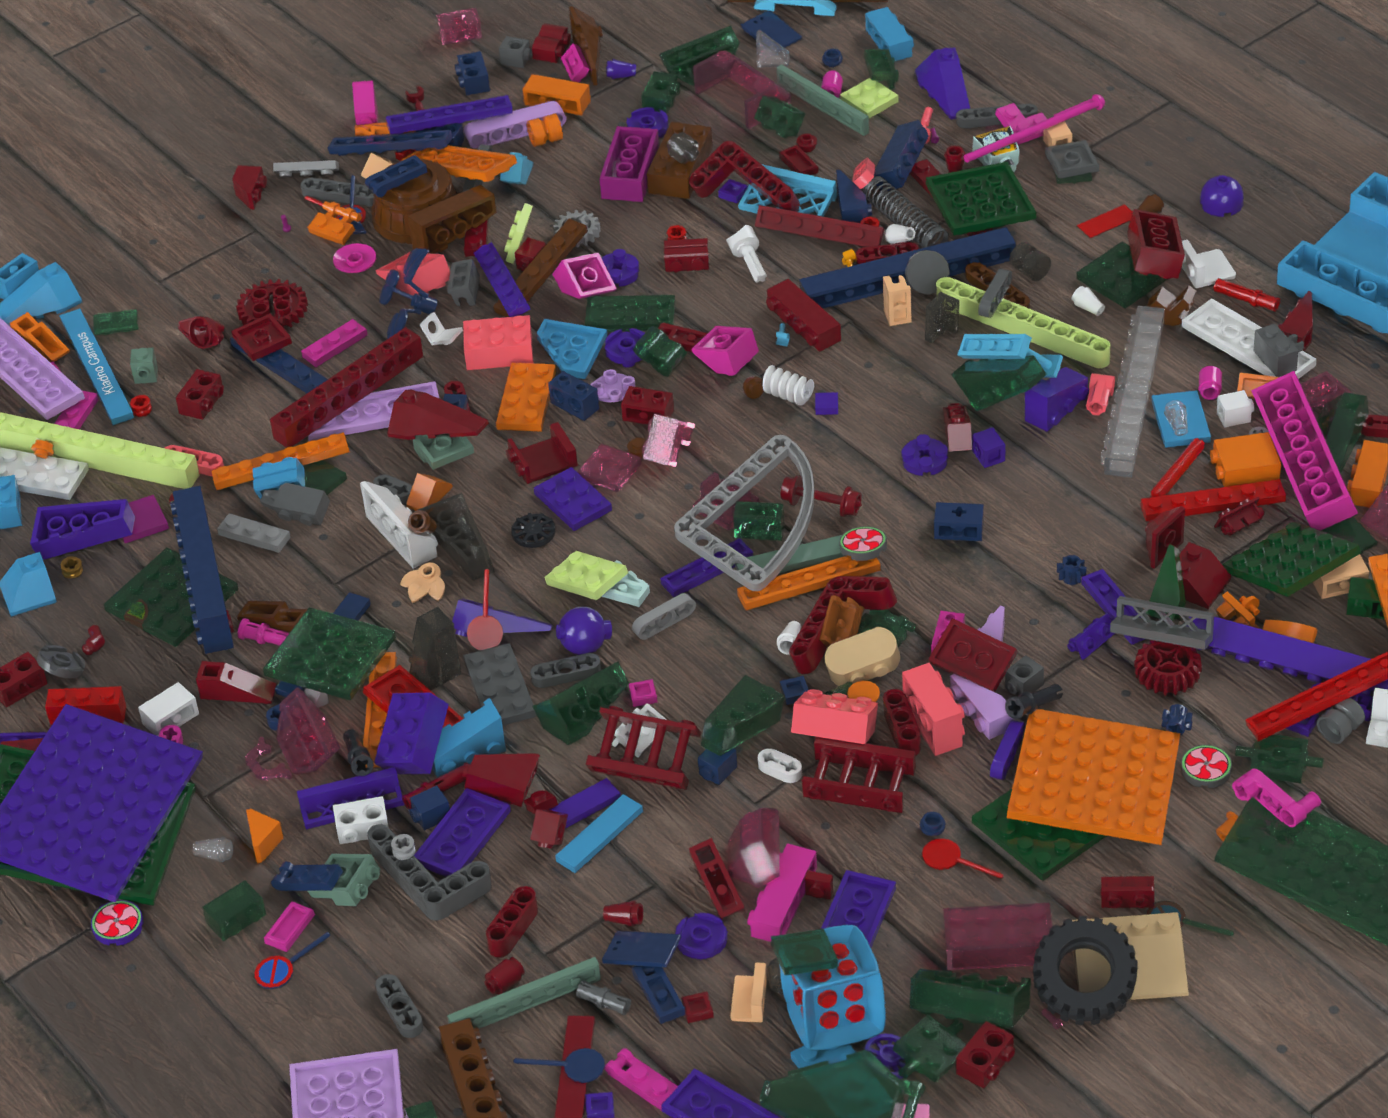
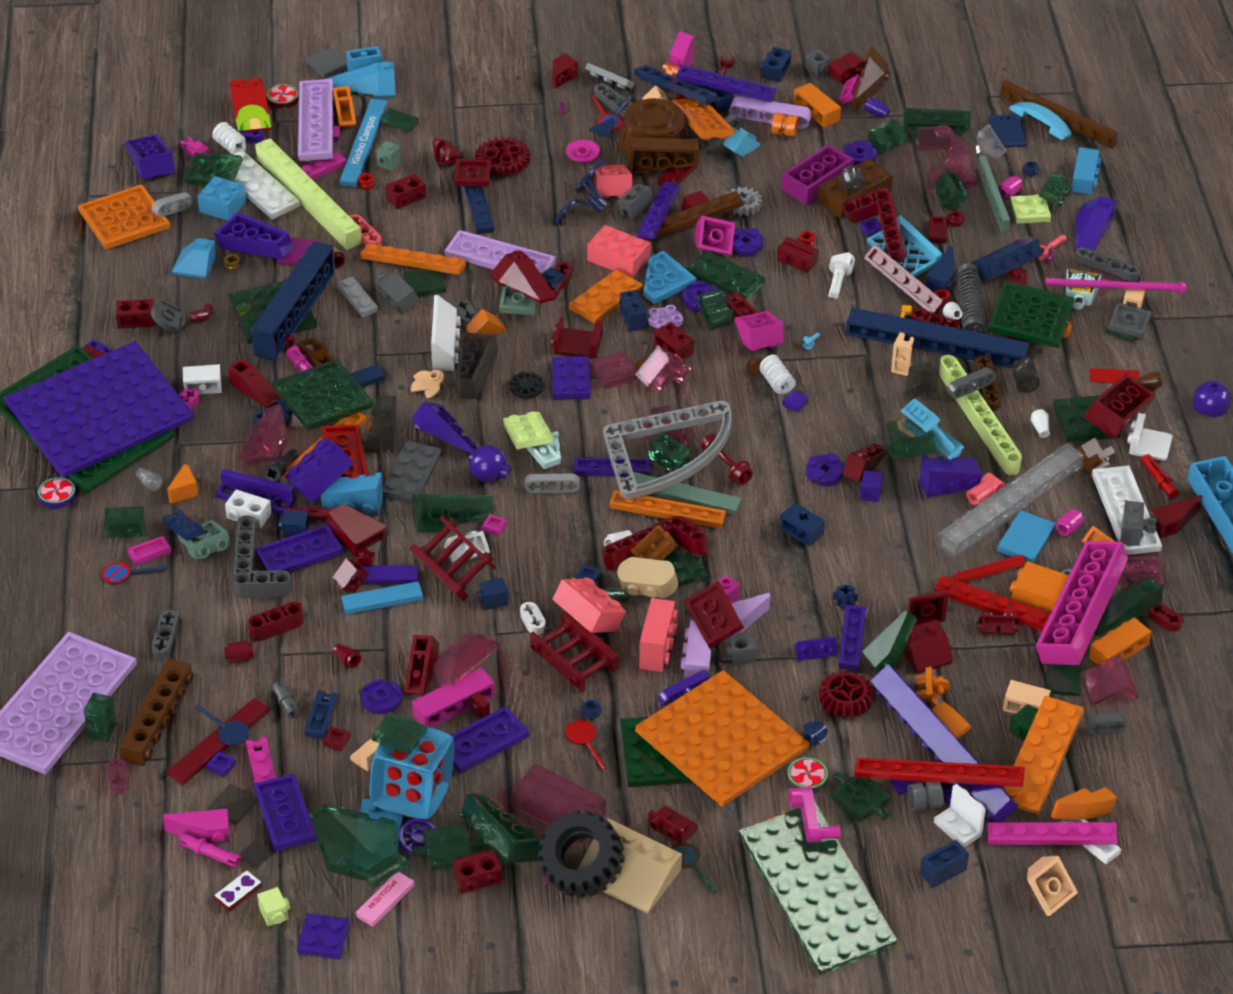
camera: 30 degrees right, 0 degrees up
(42, 449) = (277, 177): orange plate -> none
(102, 701) = (160, 351): red brick -> none
(261, 773) = (233, 453): clear pink helmet -> none
(273, 475) = (405, 267): dark azure brick -> none
(330, 227) = (588, 123): orange plate -> none
(334, 343) = (520, 200): dark pink plate -> none
(346, 388) = (492, 231): dark red brick -> none
(395, 175) = (642, 105): dark blue plate -> none
(403, 841) = (253, 534): light grey bush -> none
(421, 522) = (447, 340): reddish brown cone -> none
(441, 335) = (591, 229): white bracket -> none
(459, 26) = (798, 28): clear pink brick -> none
(485, 630) = (430, 431): piece -> none
(517, 232) = (699, 182): yellowish green plate -> none
(529, 995) = (241, 671): sand green tile -> none
(560, 678) = (472, 486): dark grey beam -> none
(641, 949) = (335, 682): dark blue container -> none
(741, 715) = (529, 570): clear green wedge -> none
(803, 315) = (835, 334): dark red brick -> none
(863, 173) = (967, 257): coral beam -> none
(863, 543) = (721, 504): tile -> none
(864, 689) = (628, 602): orange piece -> none
(901, 721) = (630, 637): dark red beam -> none
(924, 270) = (943, 342): dark grey tile -> none
(954, 158) = (1039, 278): dark red cone -> none
(1011, 116) = (1112, 272): dark pink plate -> none
(1028, 702) = (721, 665): black pin -> none
(1159, 630) = (858, 667): dark grey fence -> none
(1177, 417) = (1018, 533): clear cone -> none
(1234, 408) = (1068, 548): white brick -> none
(1291, 558) = (999, 669): dark green plate -> none

